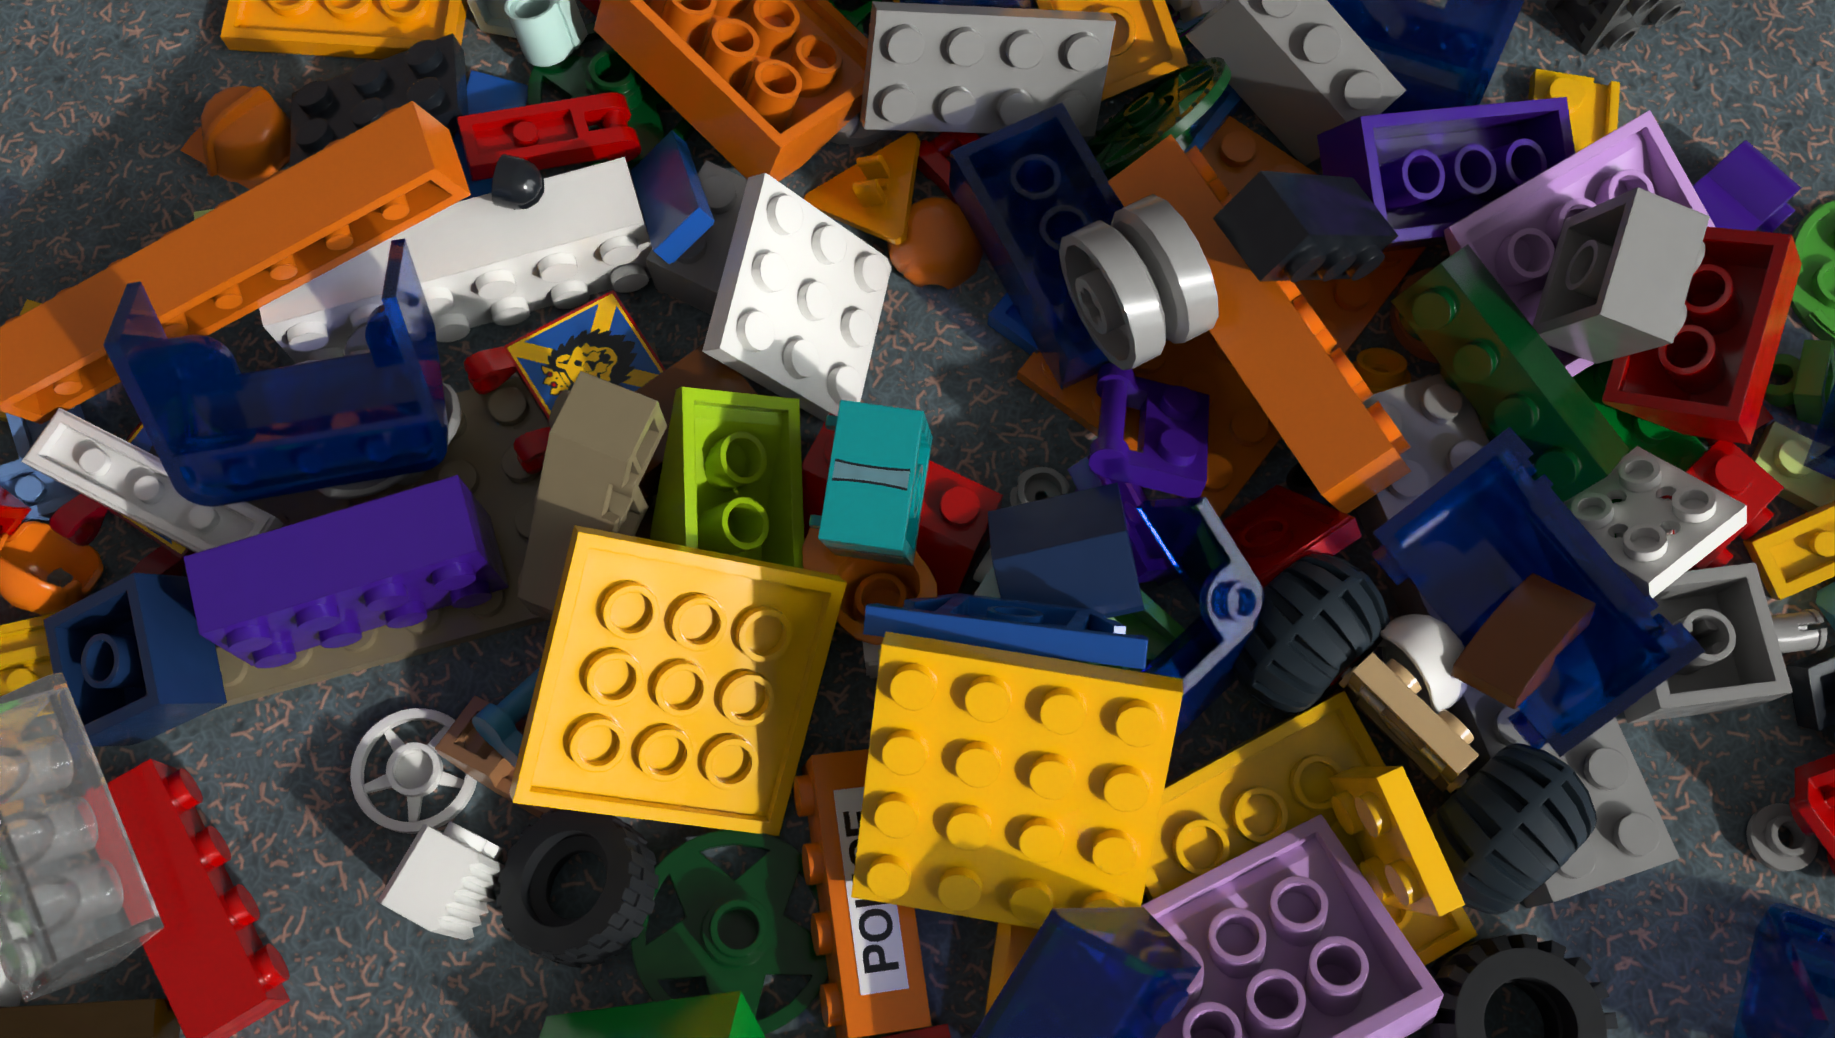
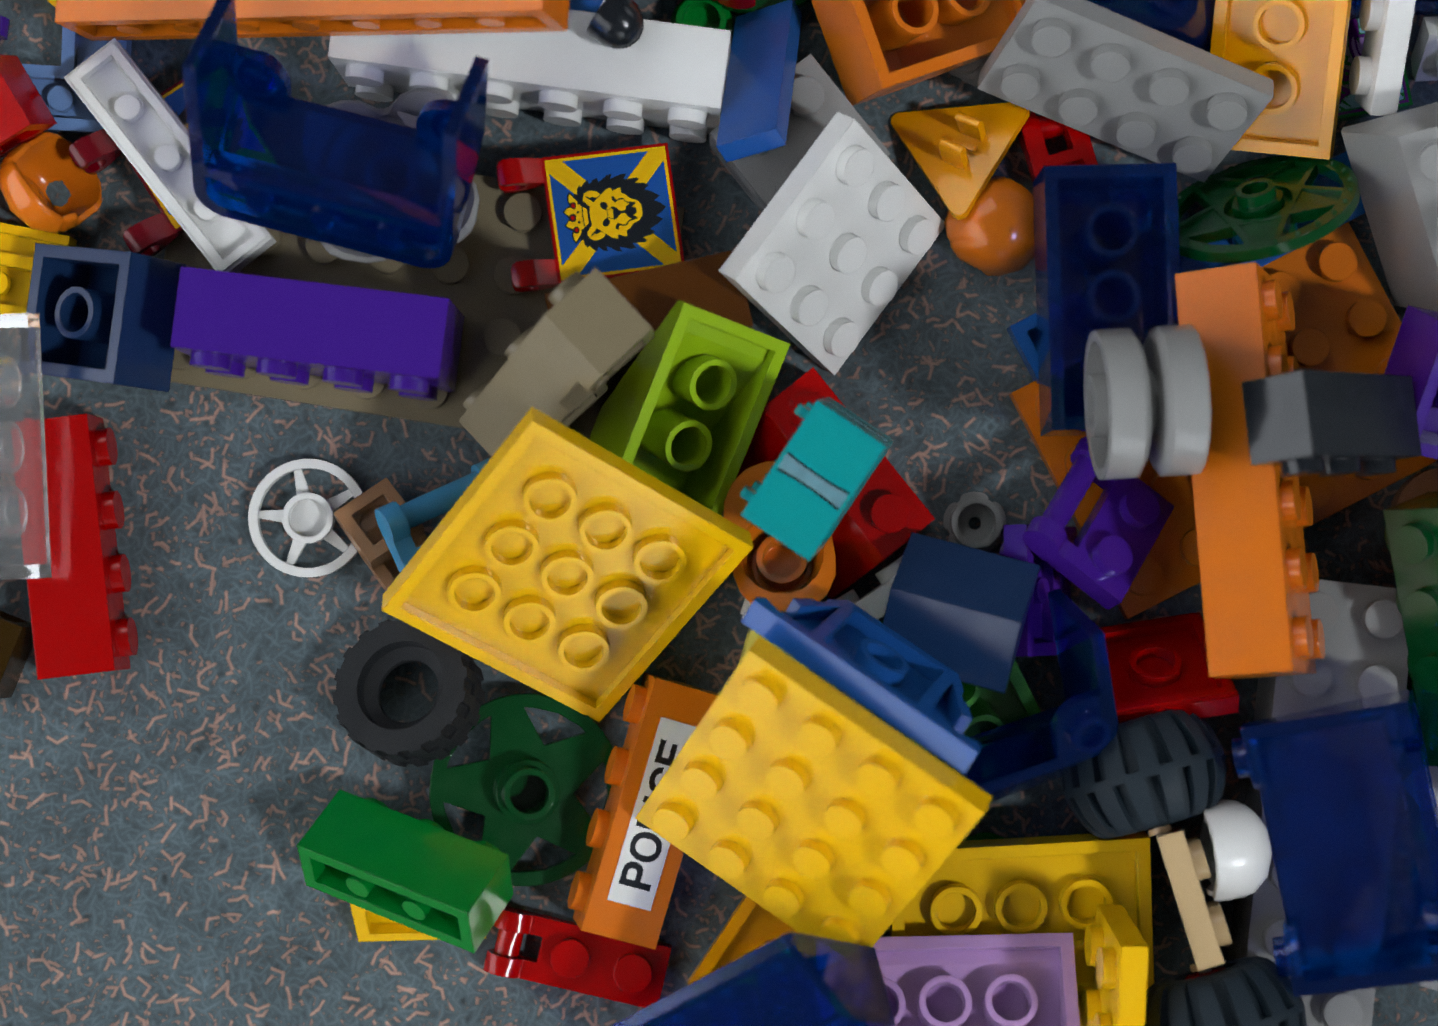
camera: 25 degrees right, 15 degrees up
(445, 880) = (299, 640): white brick -> none
(1382, 369) = (1348, 552): light orange plate -> none
(1521, 640) = (1322, 880): reddish brown slope -> none

